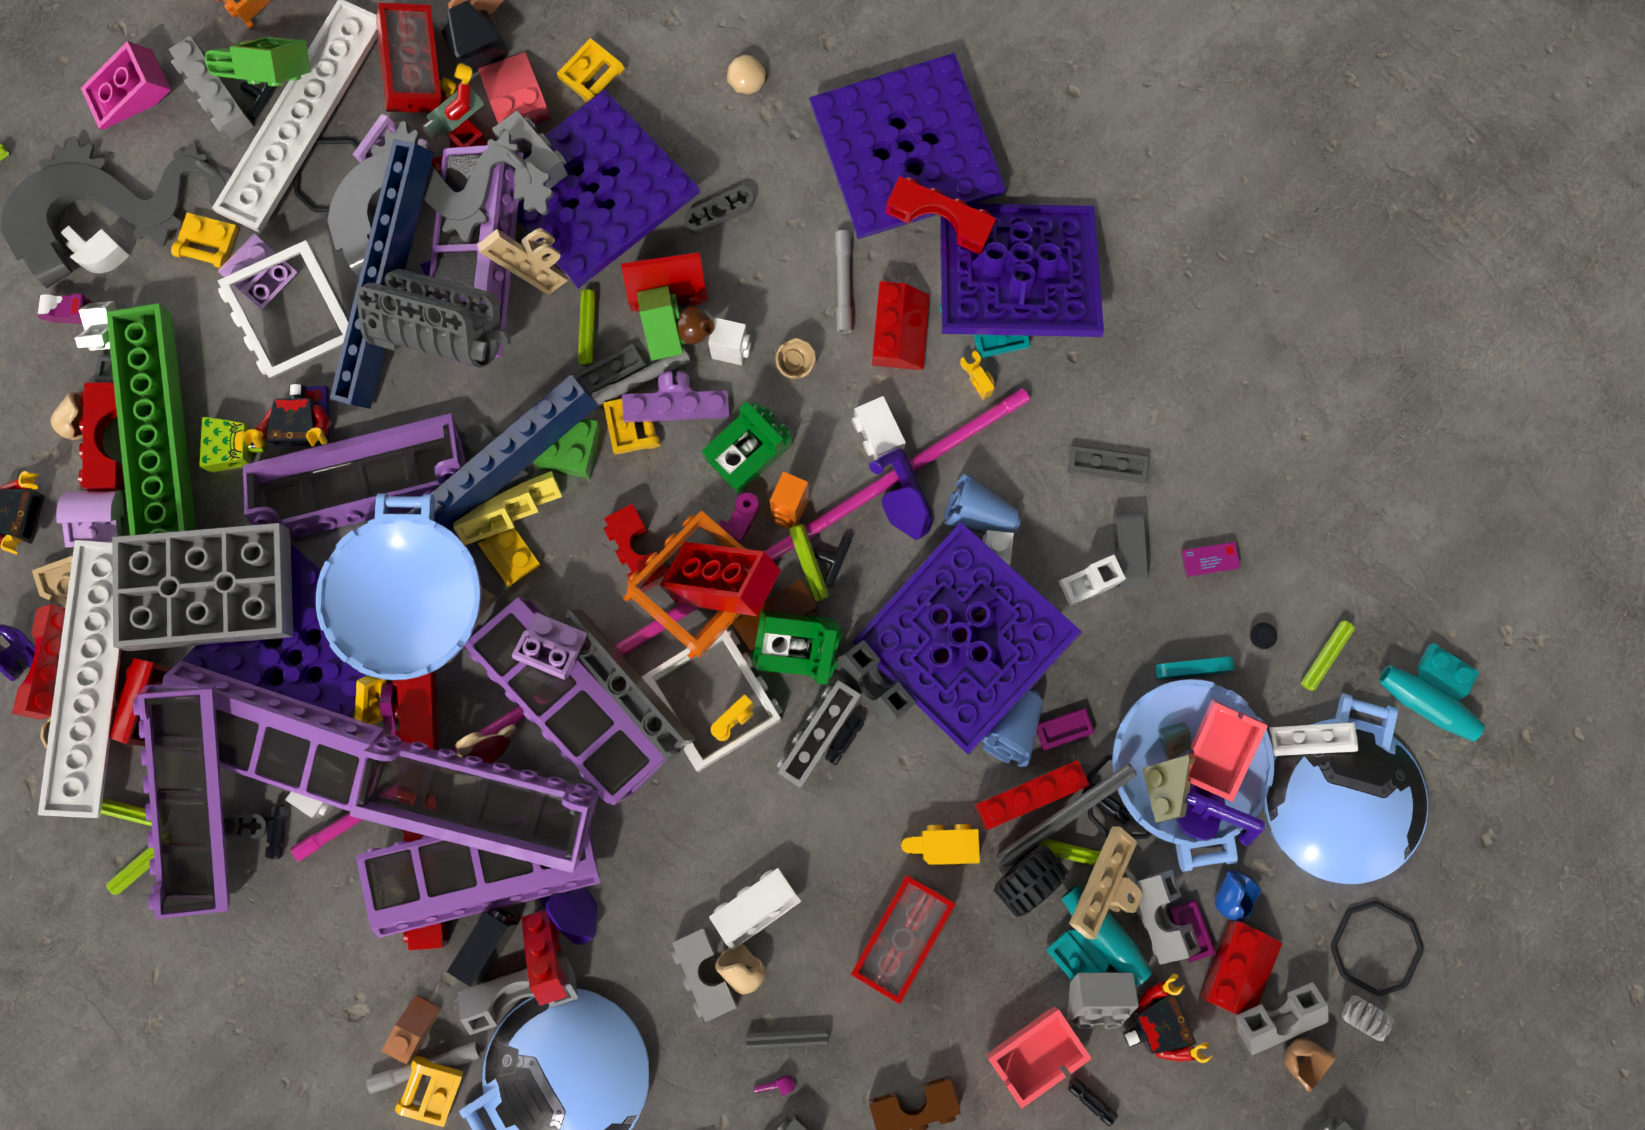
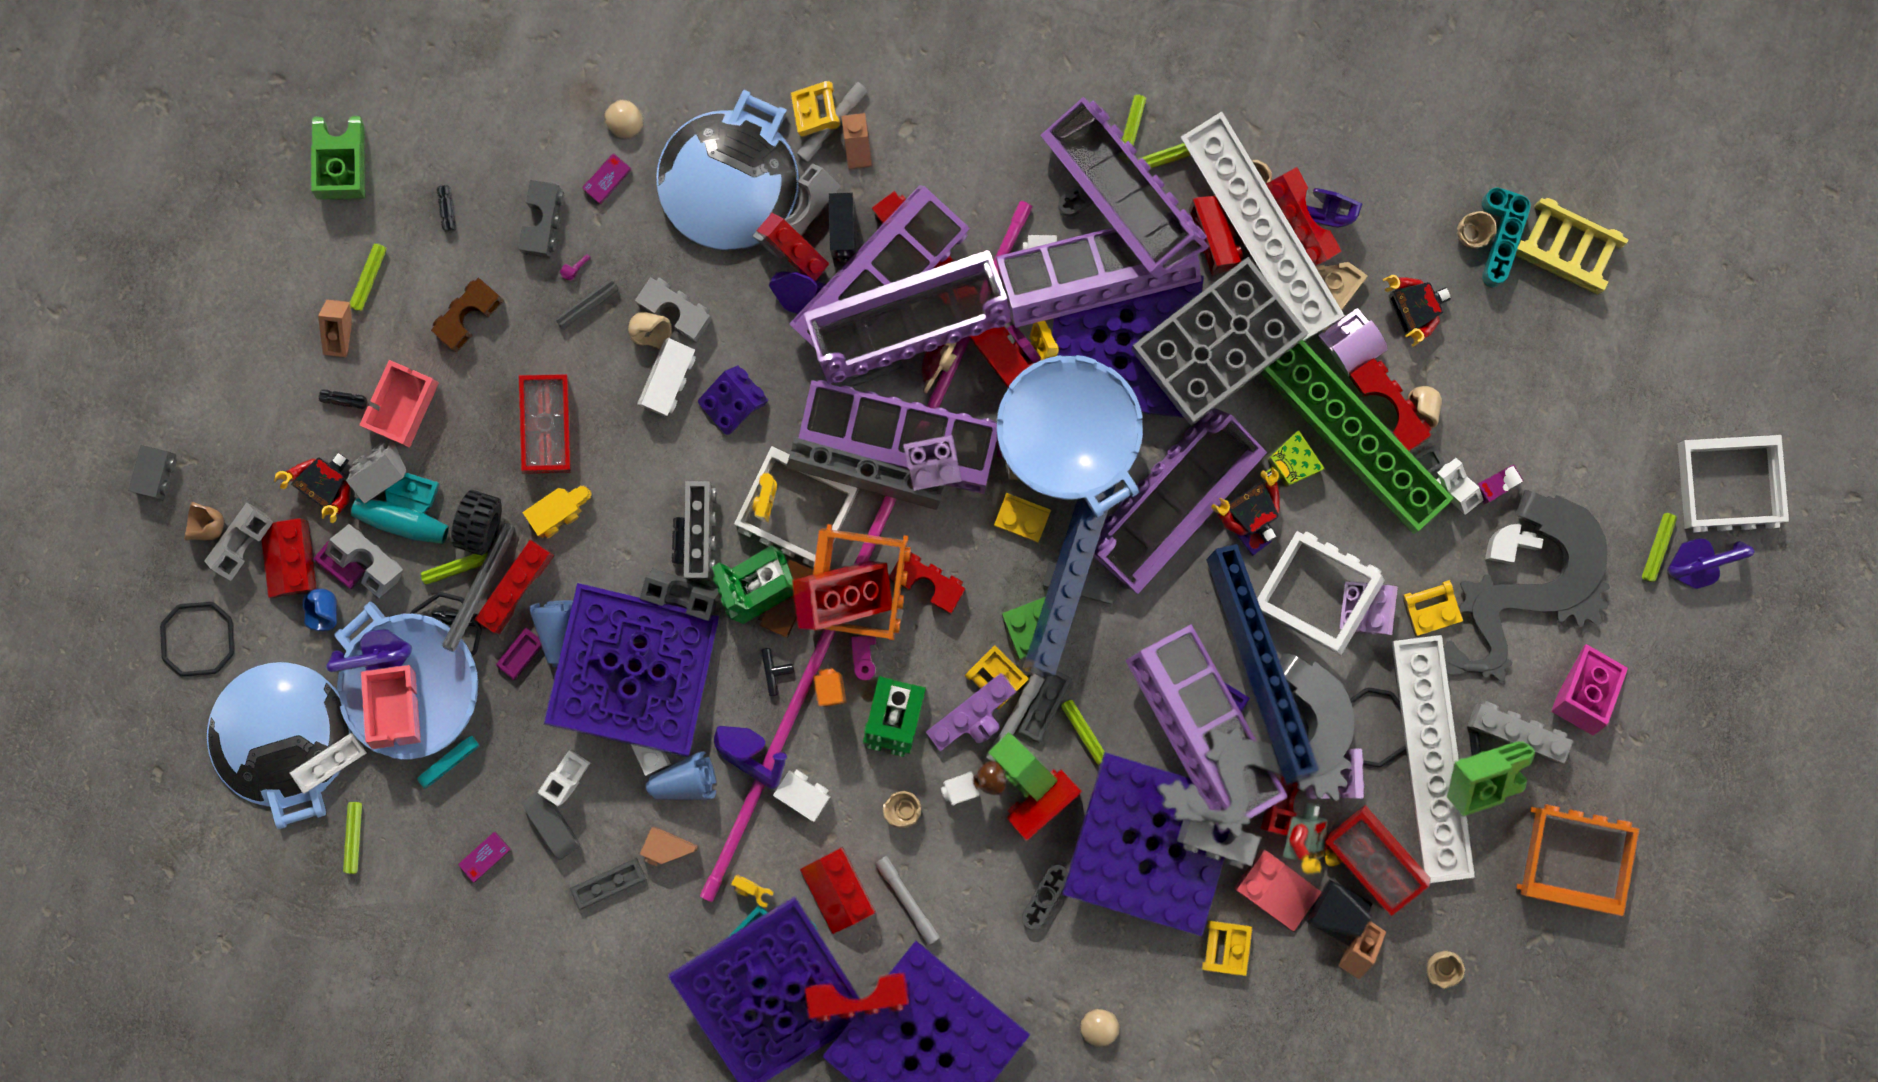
camera: 155 degrees right, 5 degrees up
(275, 831) = (1051, 210): black axle -> none
(429, 321) = (1190, 650): dark grey piece -> none
(501, 511) = (1048, 542): light yellow slope -> none
(526, 260) = (1154, 745): tan plate -> none
(705, 844) = (732, 399): none -> dark purple bracket
(808, 562) = (789, 655): lime axle -> none
(1034, 460) = (664, 847): none -> nougat slope
(1106, 887) = (419, 554): tan plate -> none
(1169, 787) = (414, 653): wing -> none
(1175, 740) = (431, 695): clear green slope -> none
(1263, 636) = (410, 821): black plate -> none
(1367, 1018) = (177, 580): light grey gear -> none
(1437, 691) = (253, 860): teal plate -> none

